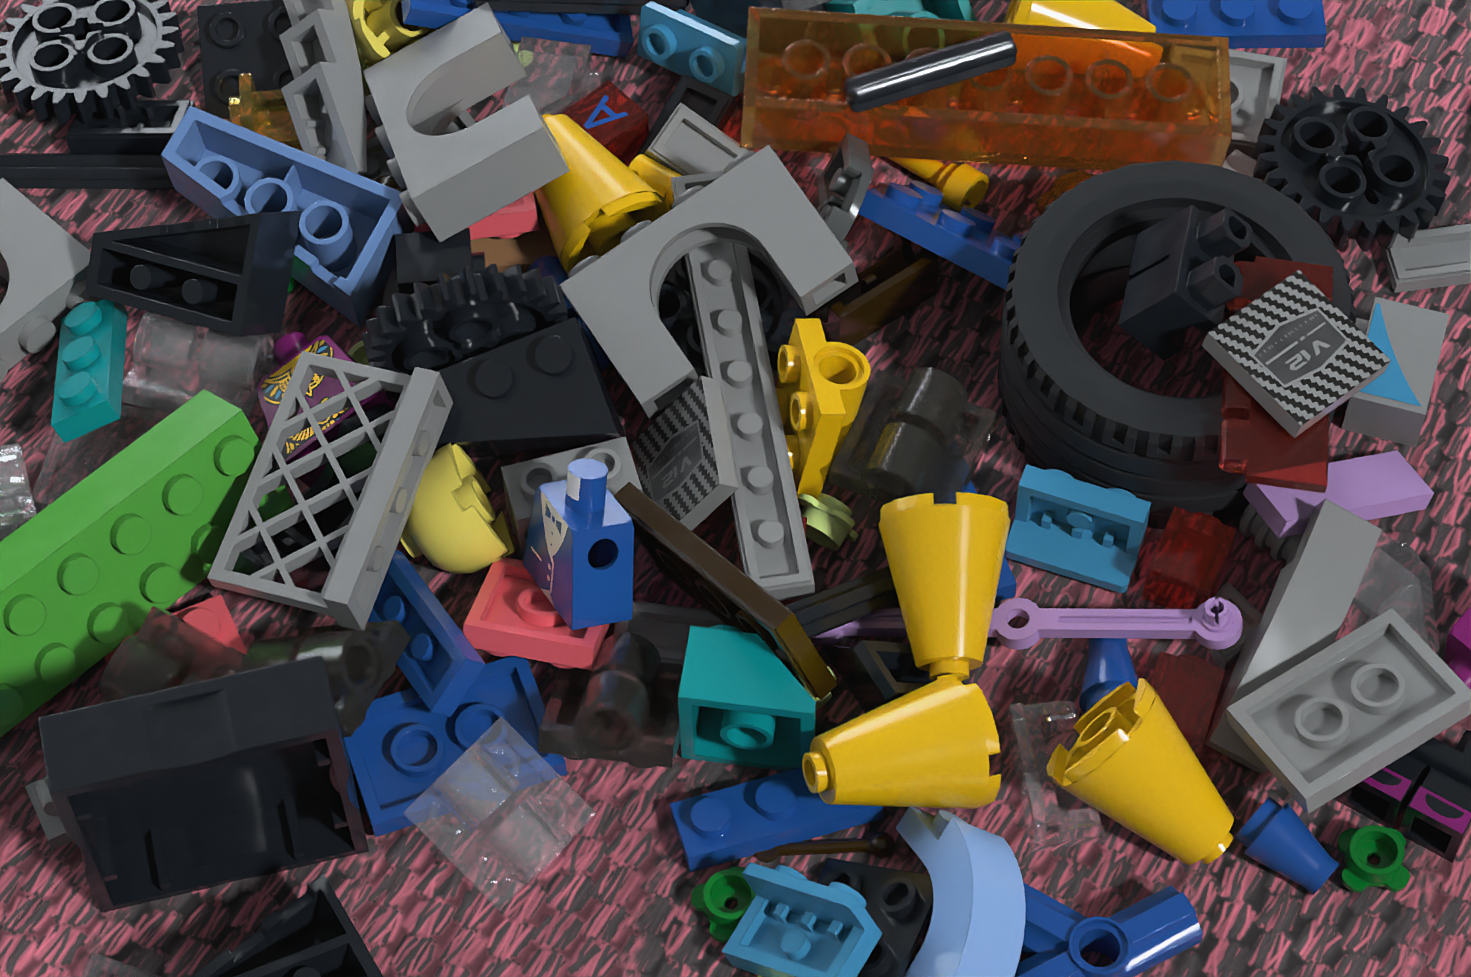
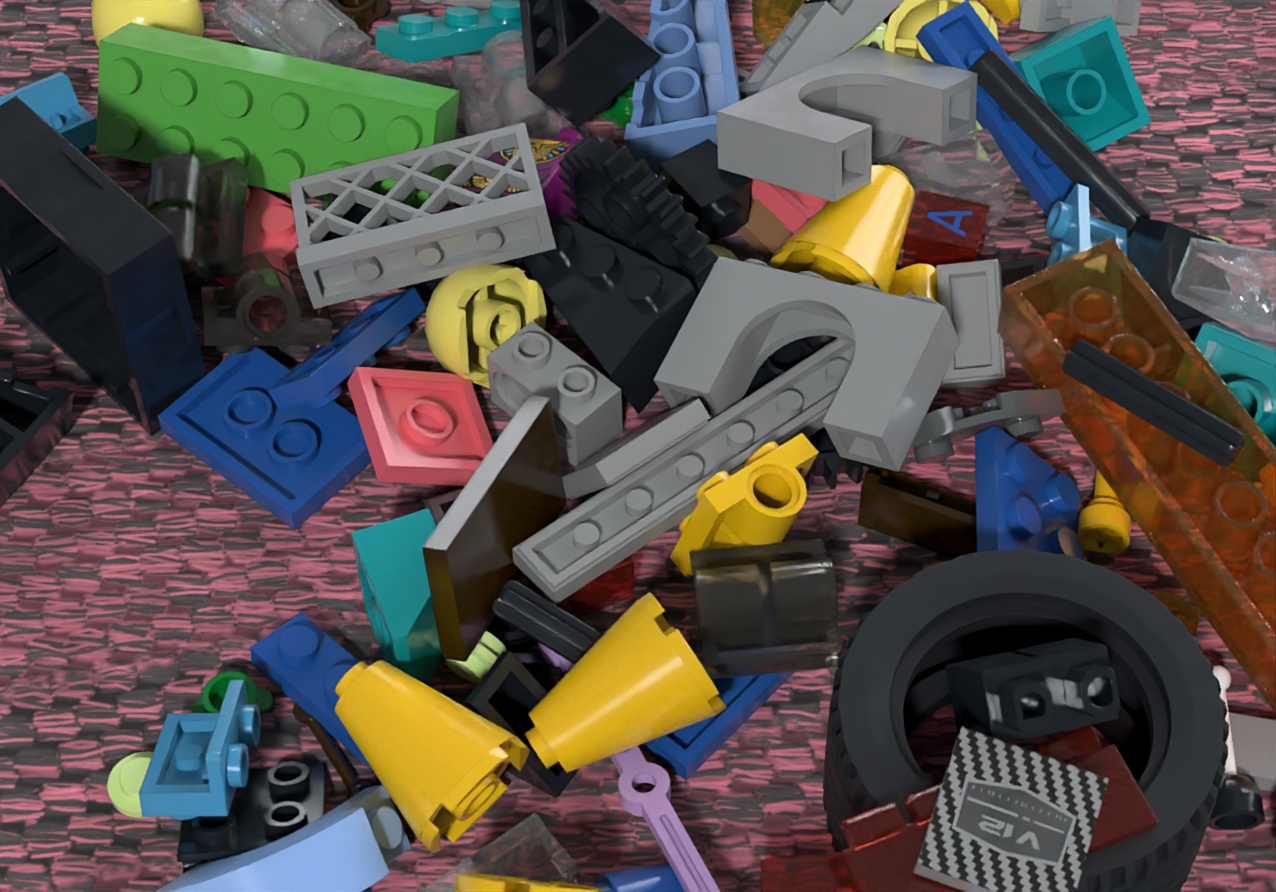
camera: 60 degrees right, 5 degrees down
(499, 813) = (210, 488): clear plate -> none
(582, 547) = (493, 384): blue torso -> none
(617, 709) = (333, 503): clear smoke plate -> none
(827, 520) = (661, 581): yellowish green plate -> none
(1077, 528) = (774, 789): dark azure bracket -> none

